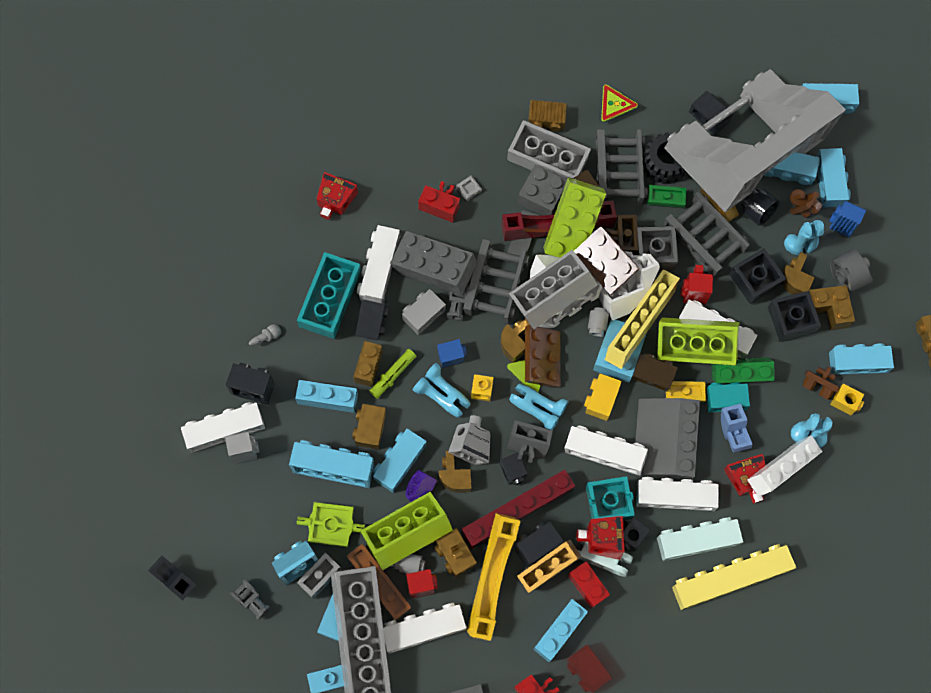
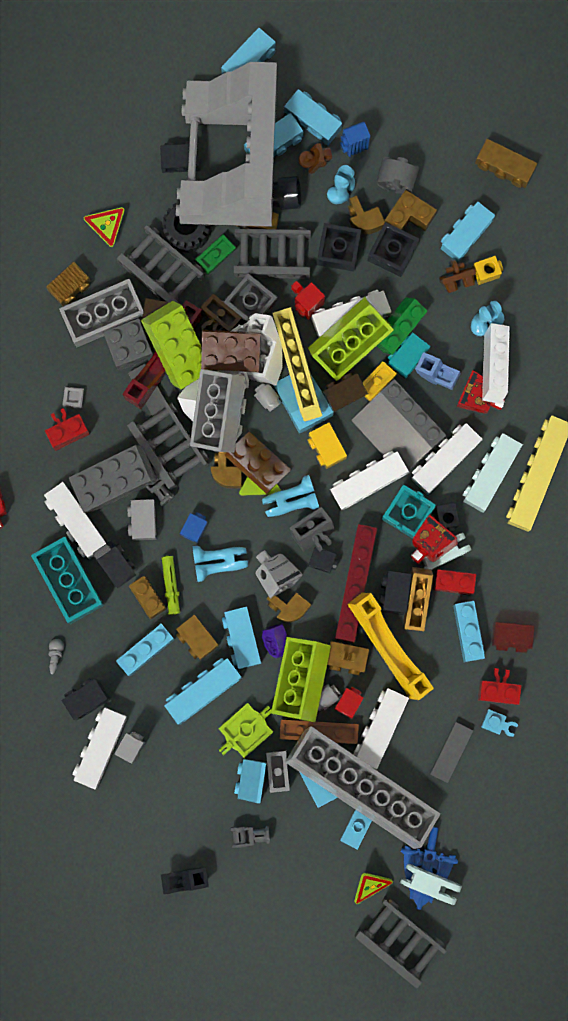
camera: 45 degrees left, 10 degrees up
(482, 388) = (241, 528): yellow brick -> none

